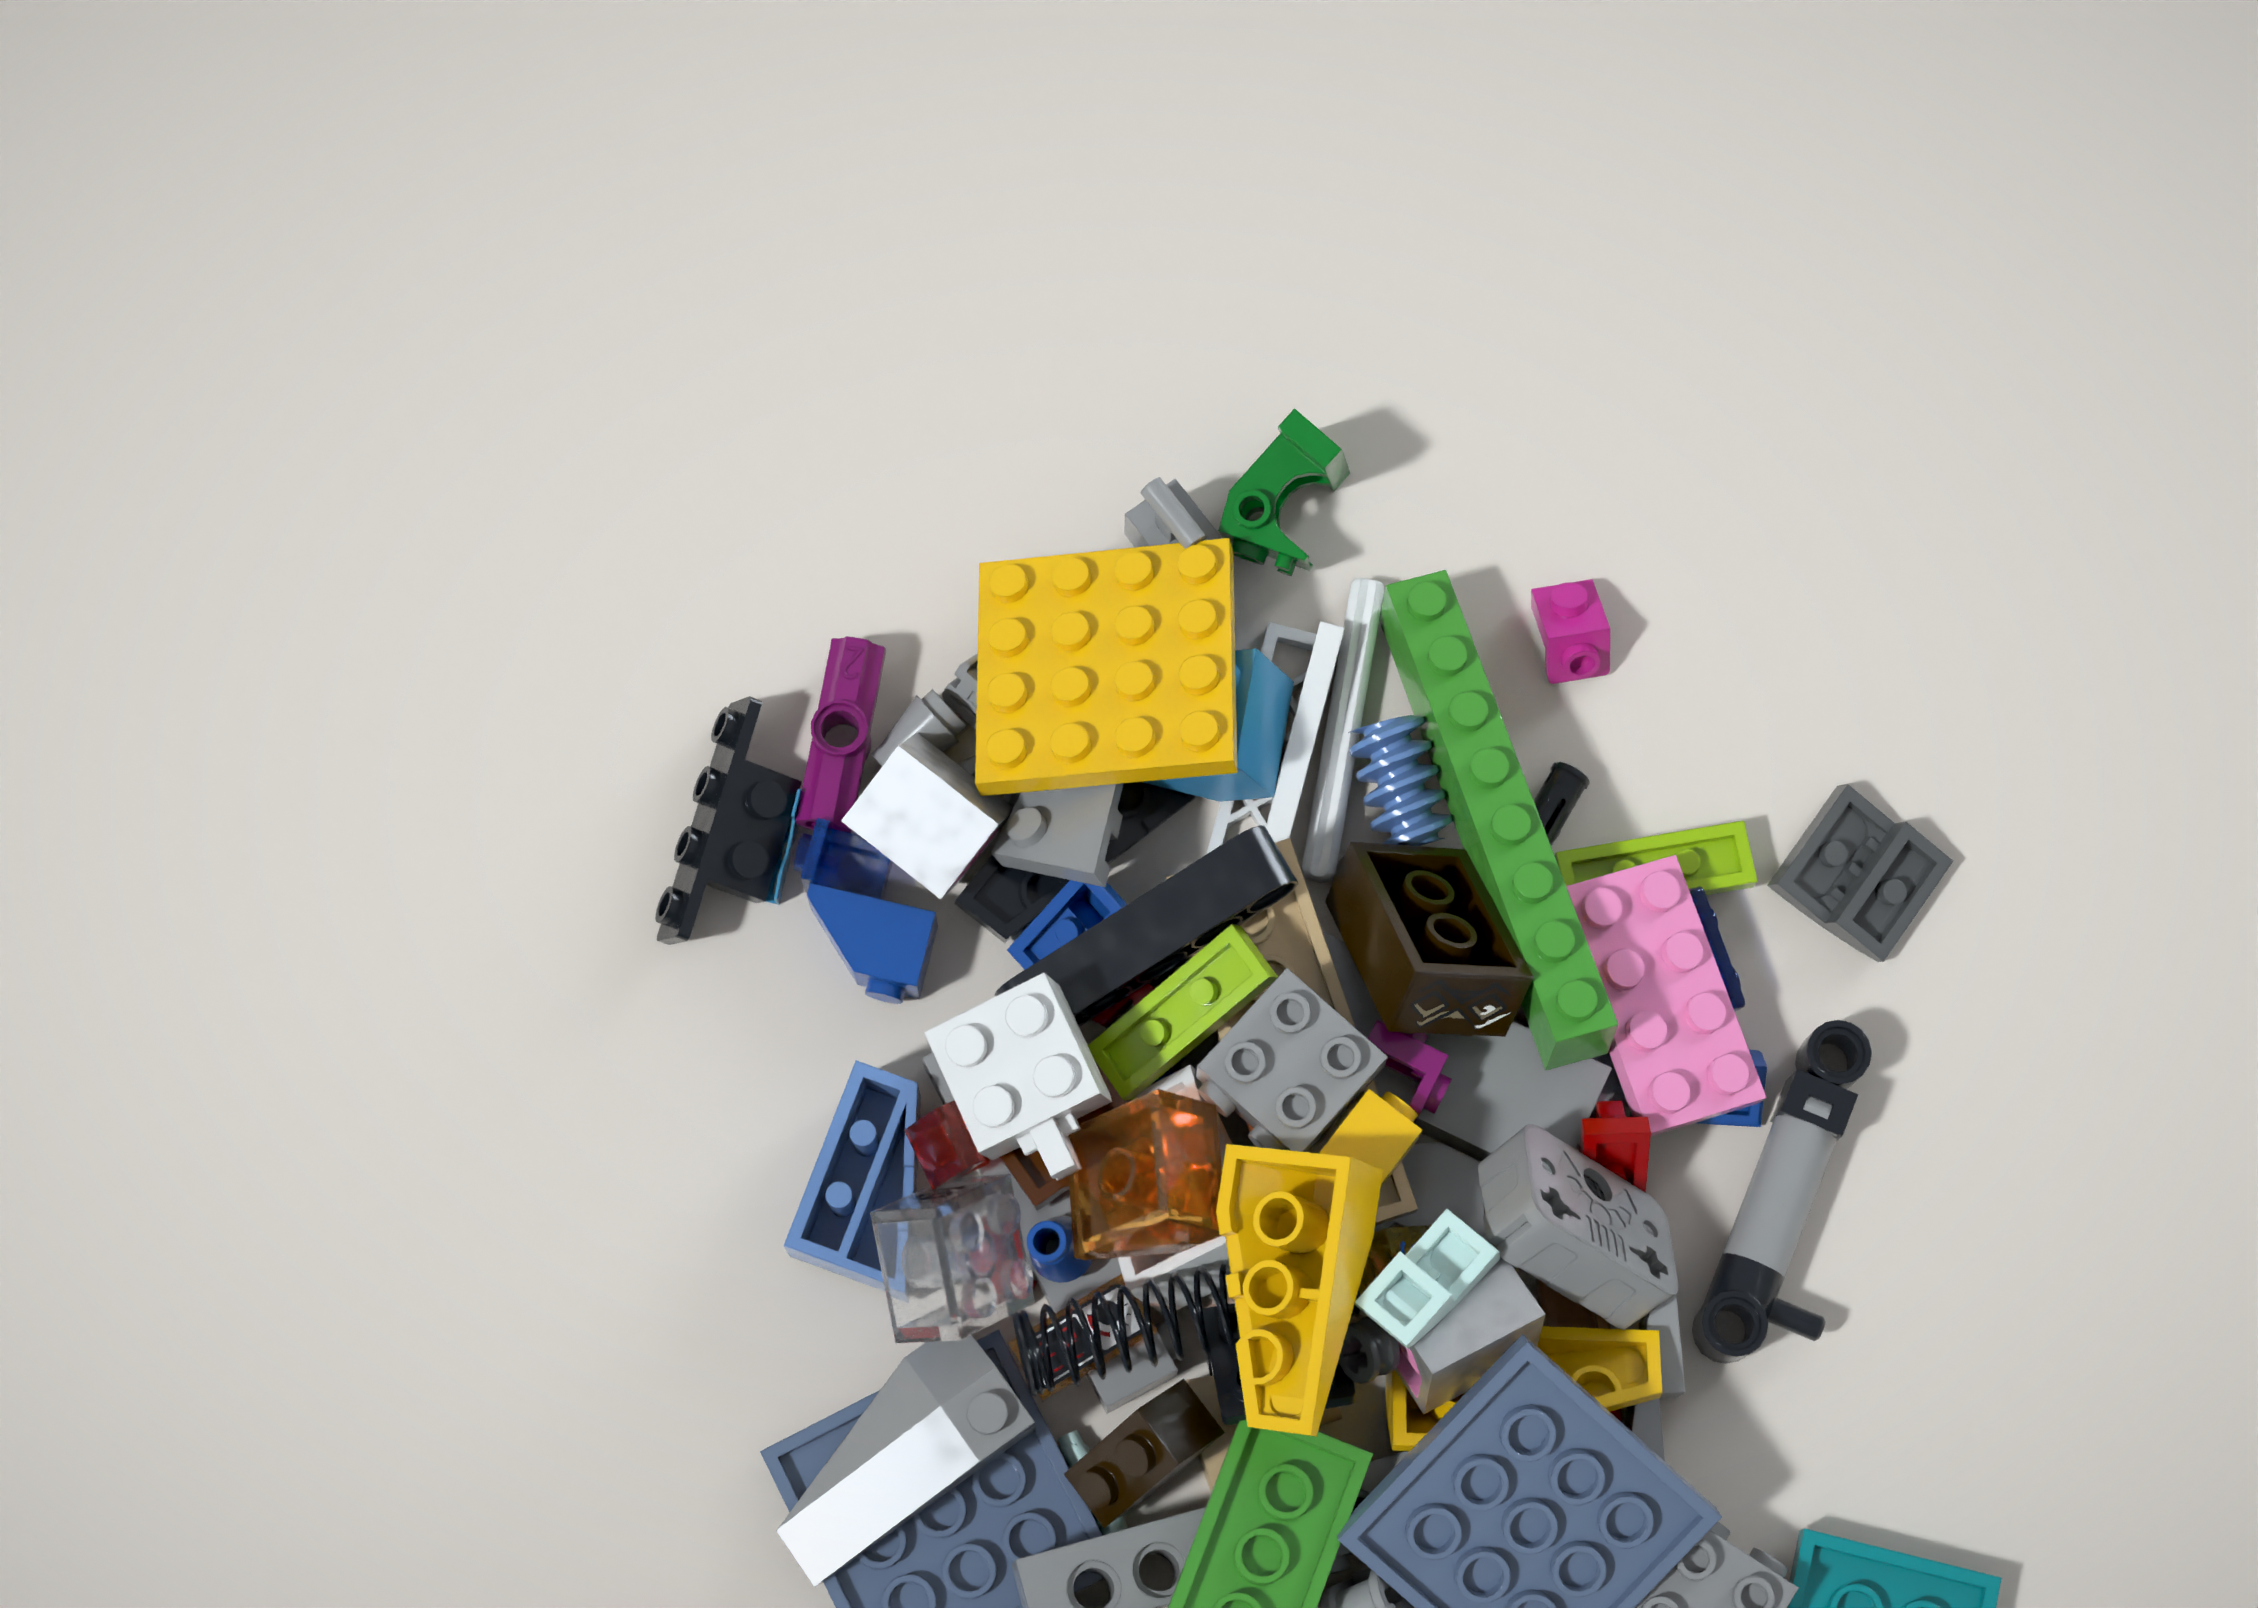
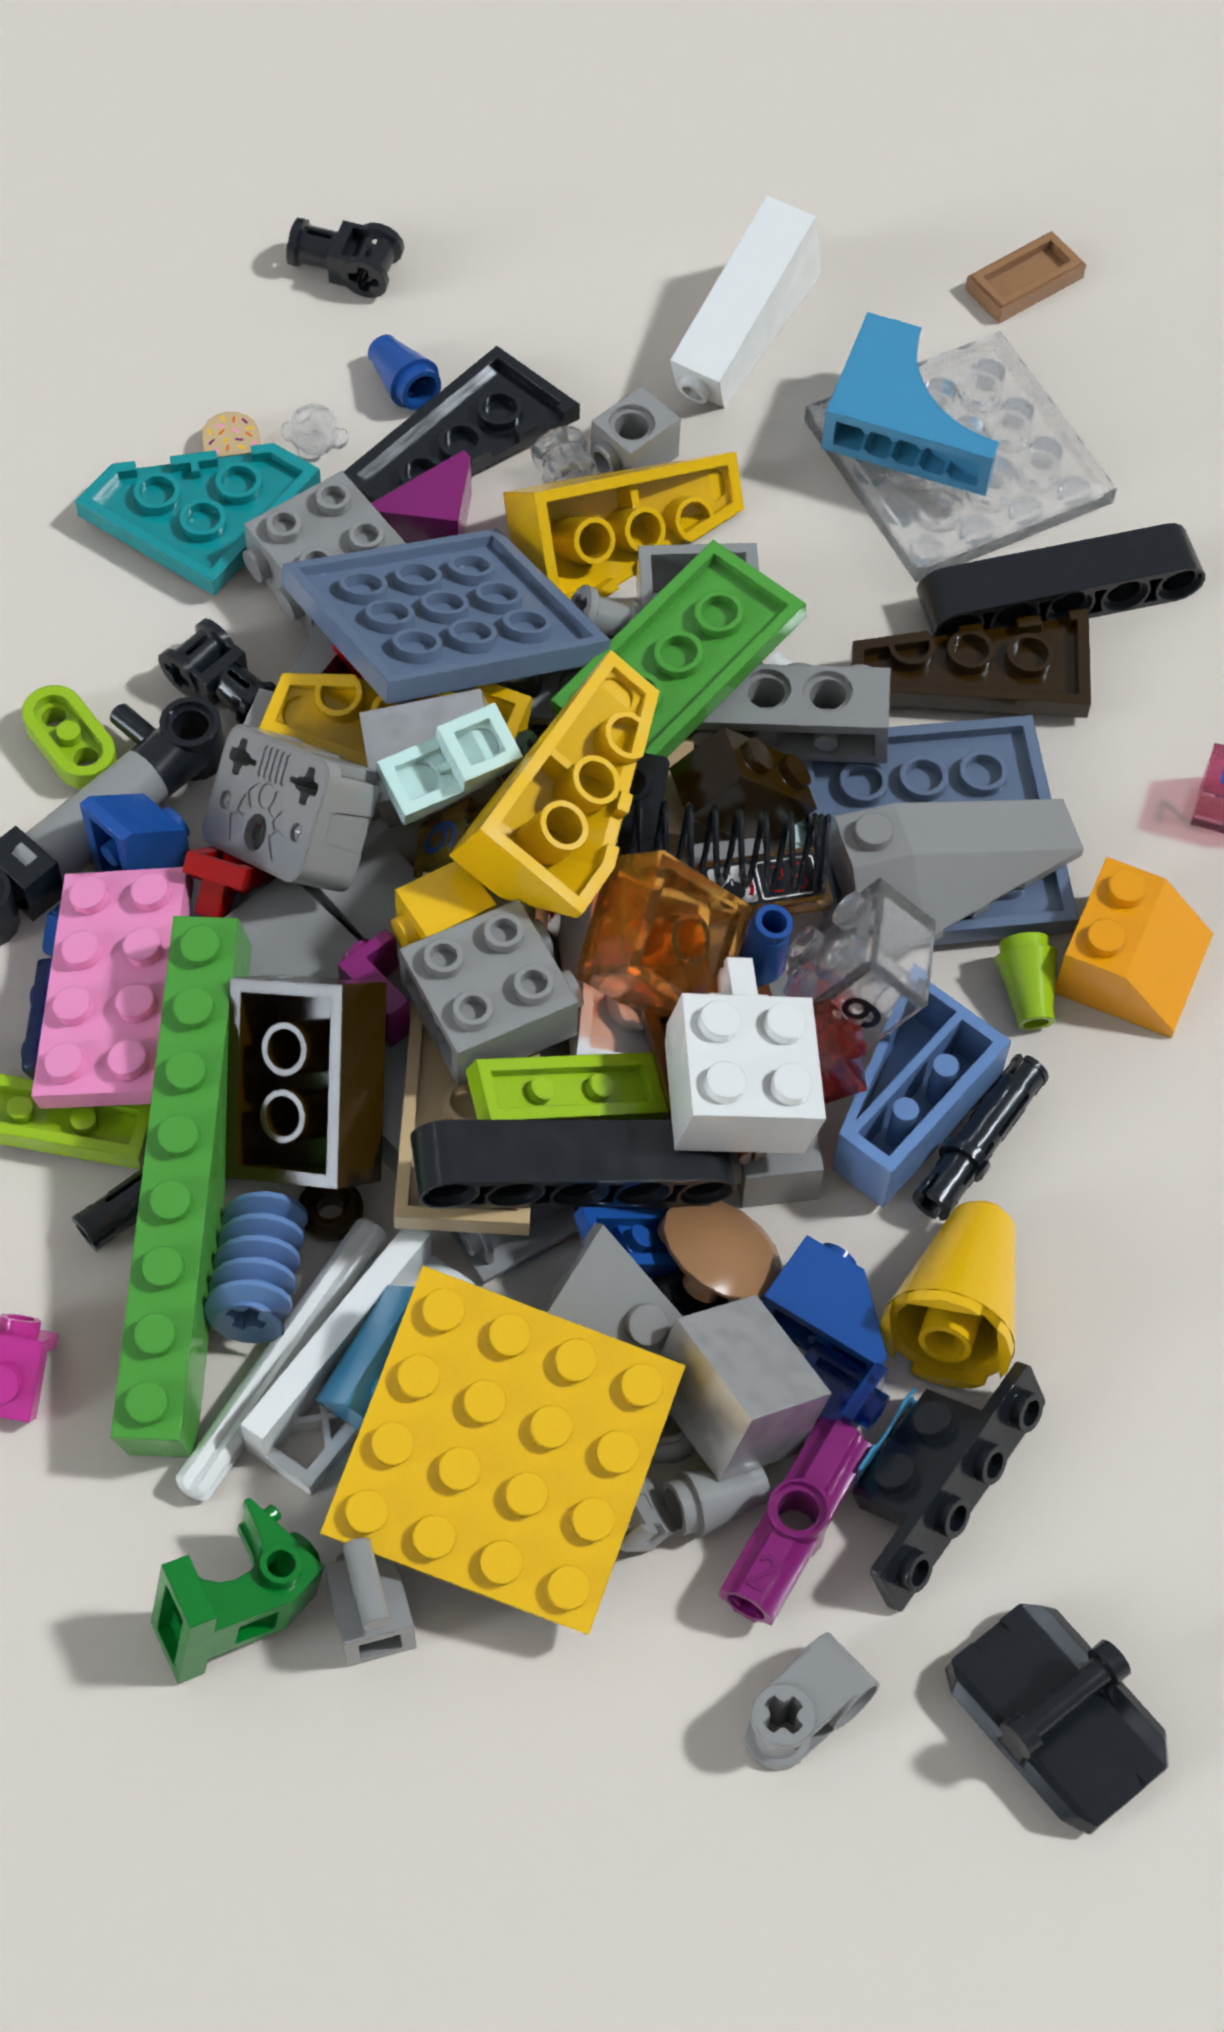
camera: 160 degrees left, 15 degrees down
(572, 656) = (1060, 1714): none -> black shield
(694, 1442) = (1134, 949): none -> light orange slope
(759, 997) = (958, 1301): none -> yellow cone
(774, 597) = (815, 1695): none -> light grey piece
(792, 1372) = (1029, 977): none -> lime cone
(793, 1162) = (967, 1155): none -> black pin
(985, 945) = (720, 1251): none -> medium nougat dish
(1720, 1172) = (133, 833): none -> blue slope
(1743, 1420) = (213, 669): none -> black connector
(1854, 1282) = (73, 740): none -> lime plate

